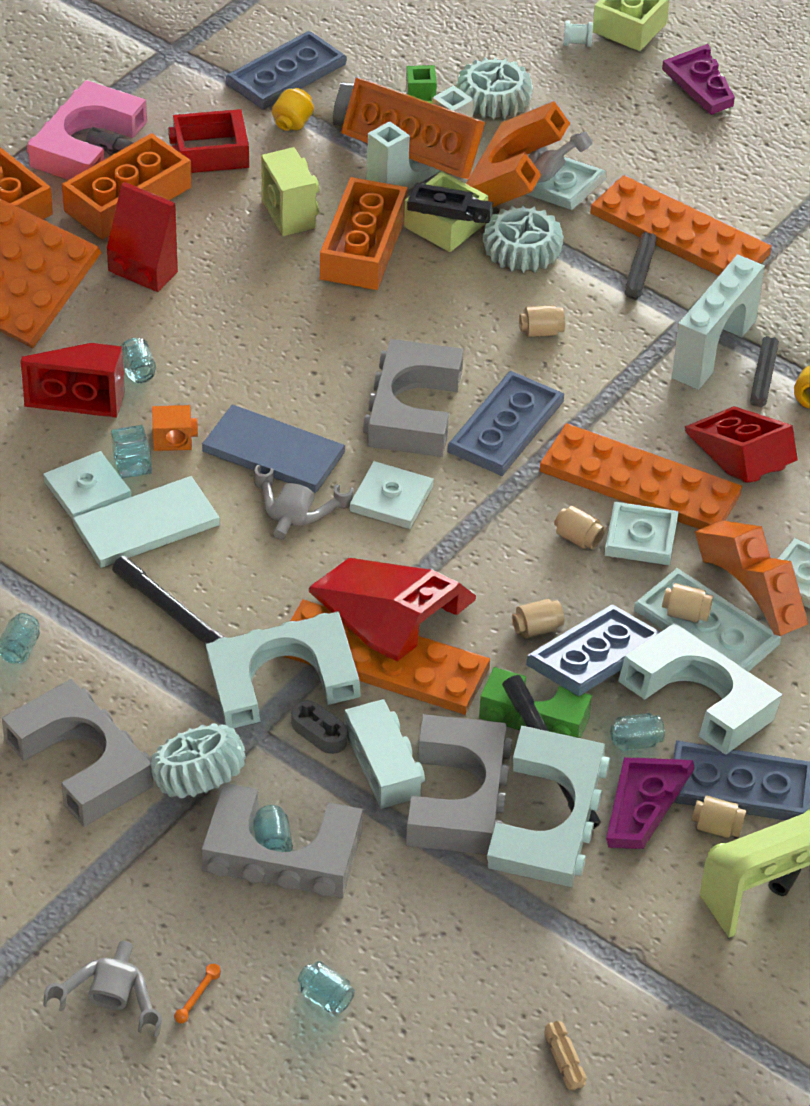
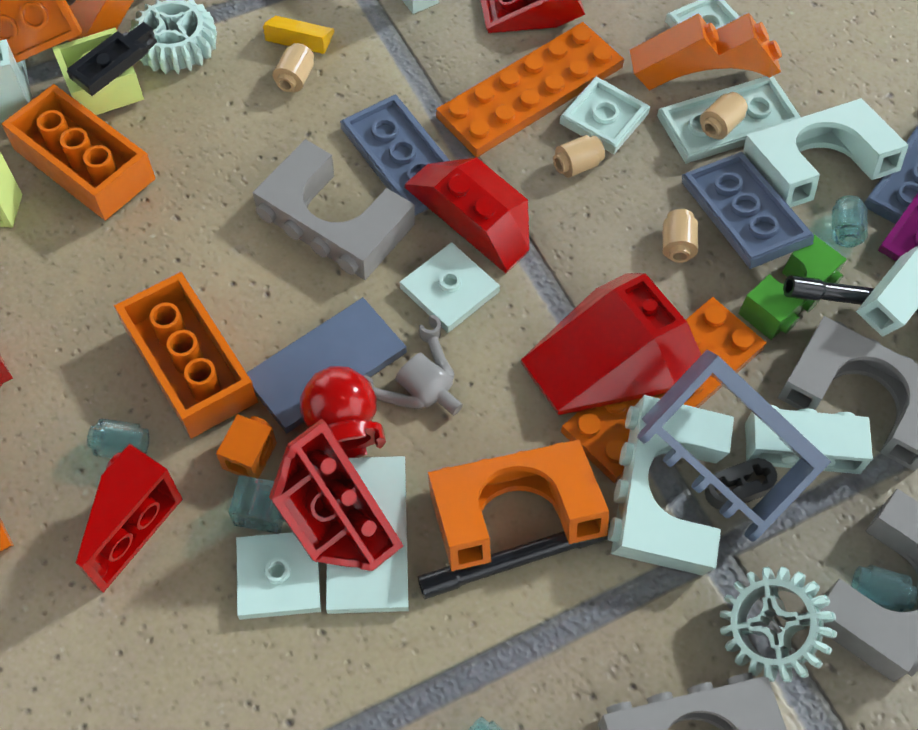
camera: 65 degrees left, 15 degrees up
(143, 469) = (330, 504): none -> red wedge
(206, 556) = (554, 472): none -> orange arch
(223, 457) = (346, 405): none -> red tile
(224, 361) = (186, 354): none -> orange brick
(351, 721) = (789, 487): none -> sand blue hinge
(474, 480) = (477, 207): none -> red wedge
(588, 312) = (291, 31): none -> yellow slope

